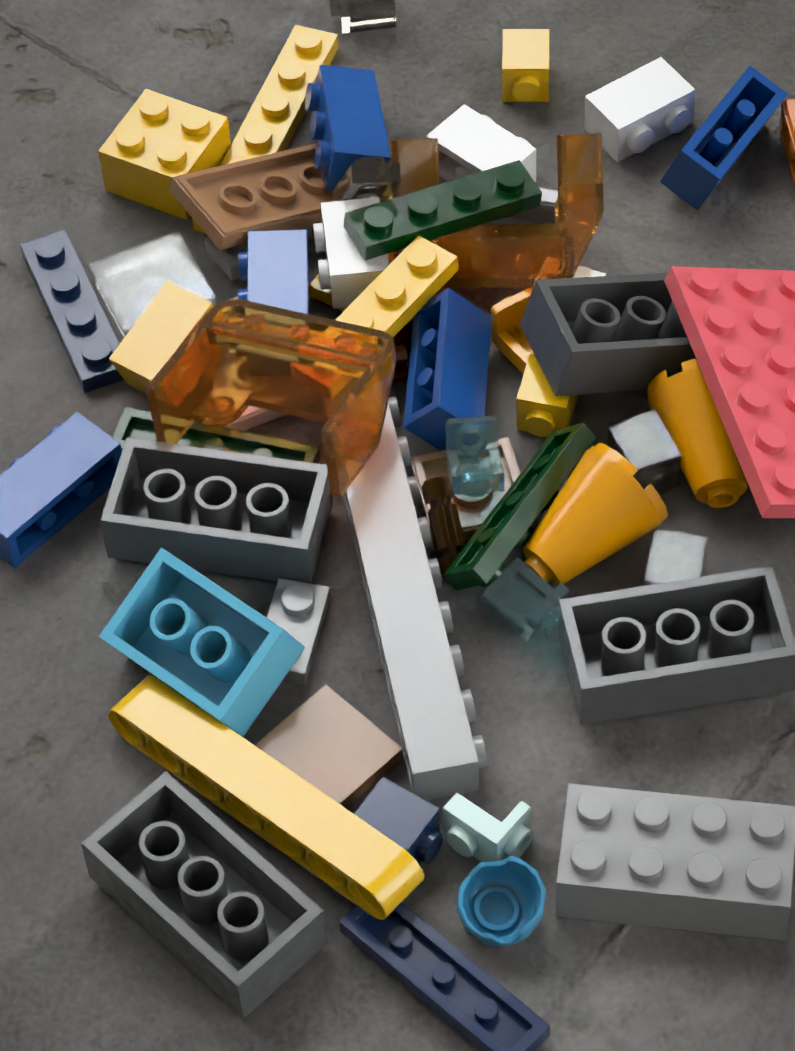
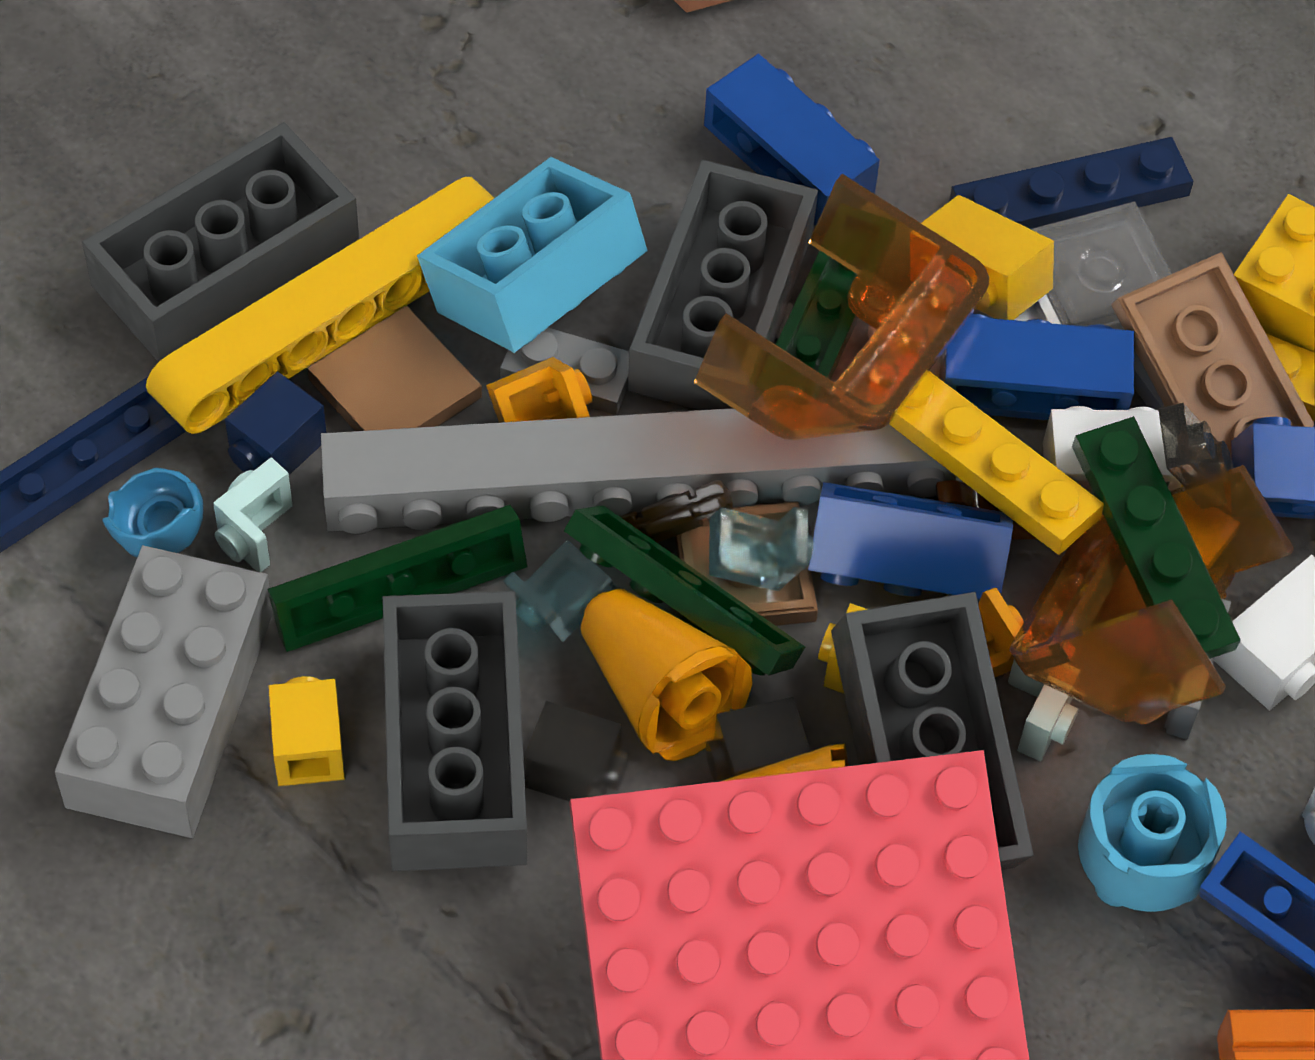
camera: 90 degrees right, 5 degrees up
(335, 633) = (541, 393): none -> light orange bracket
(518, 697) = (428, 564): none -> dark green plate
(671, 219) = (1151, 834): none -> medium azure brick
(690, 756) = (306, 731): none -> yellow brick

